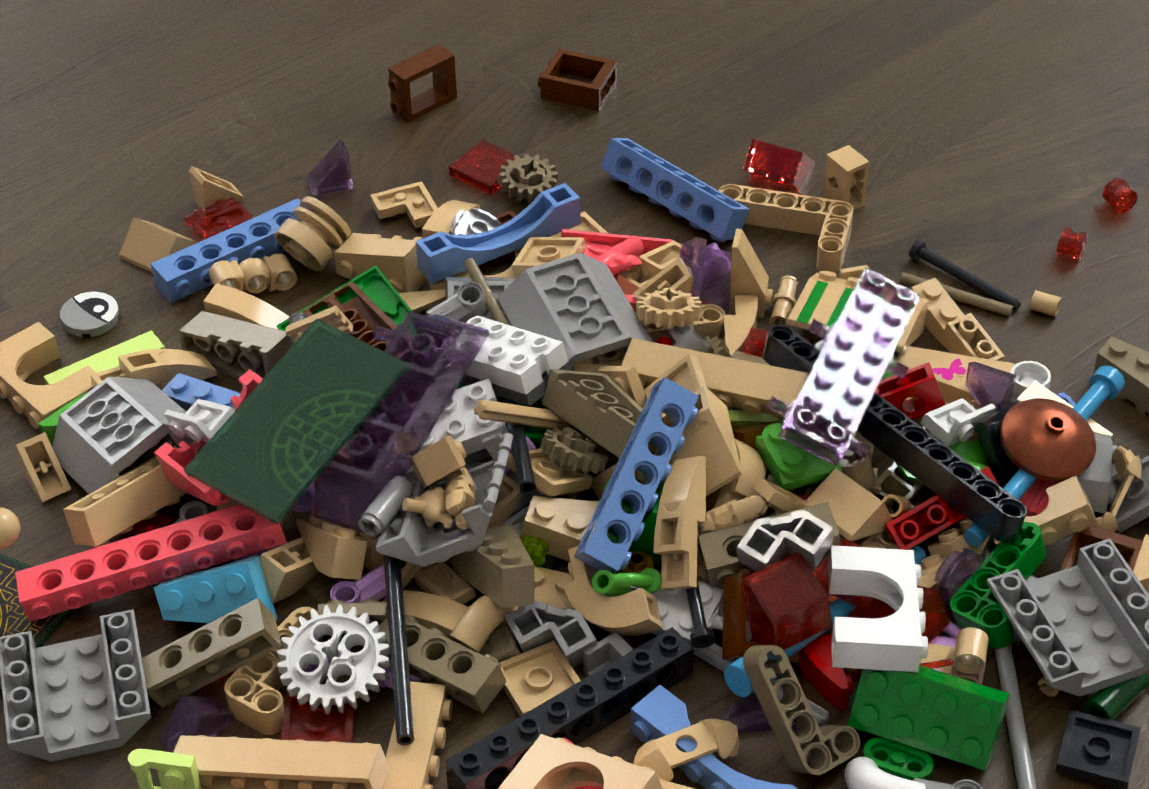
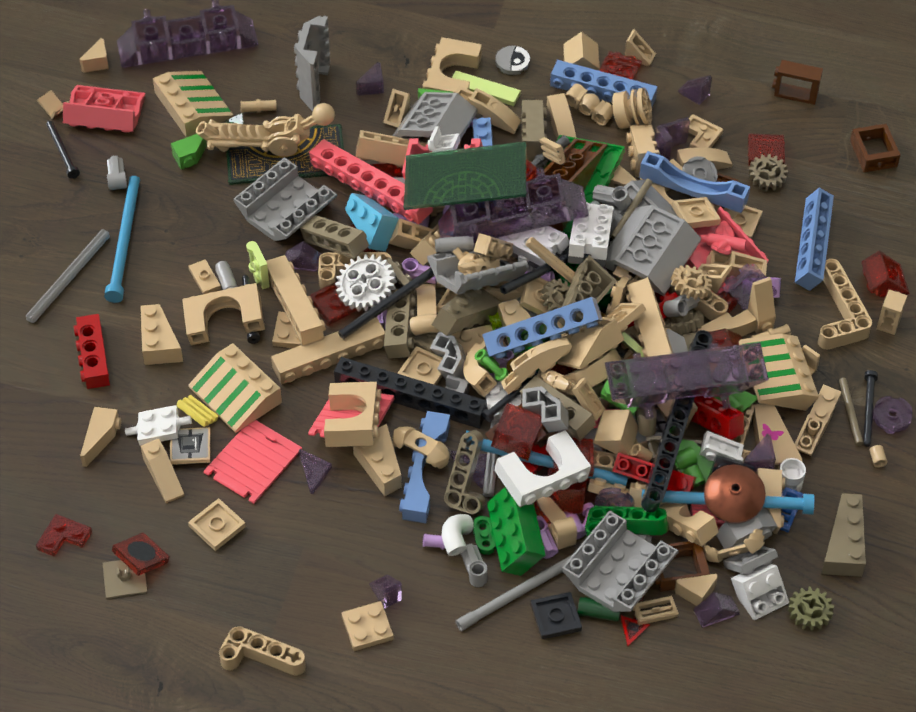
camera: 55 degrees right, 10 degrees up
(391, 222) = (671, 135): none -> bracket
(1004, 260) = (890, 423): none -> clear purple plate

